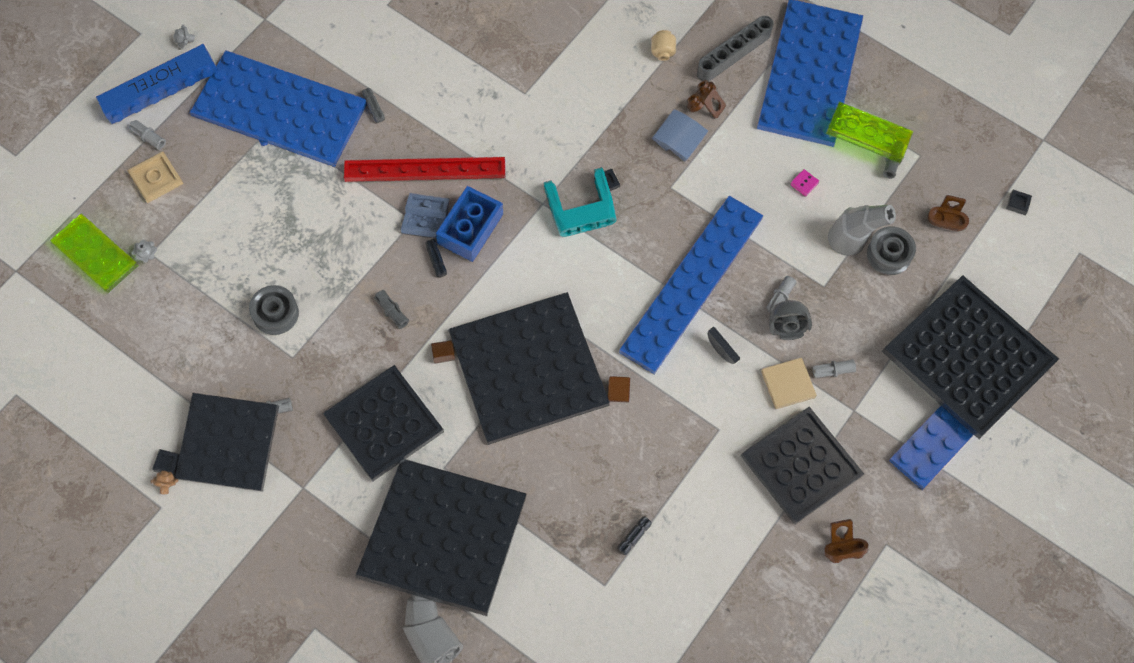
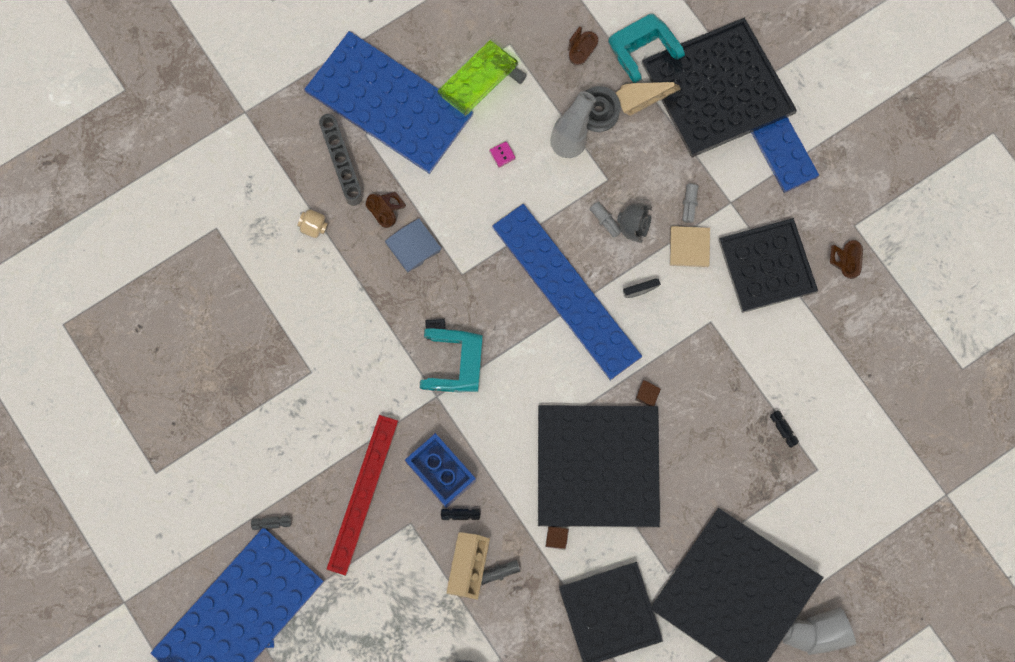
camera: 70 degrees left, 10 degrees up
(386, 276) = (468, 565): none -> tan brick
(424, 215) = (411, 510): sand blue slope -> none
(922, 282) = (638, 96): none -> tan slope
(983, 261) = (638, 35): none -> teal connector

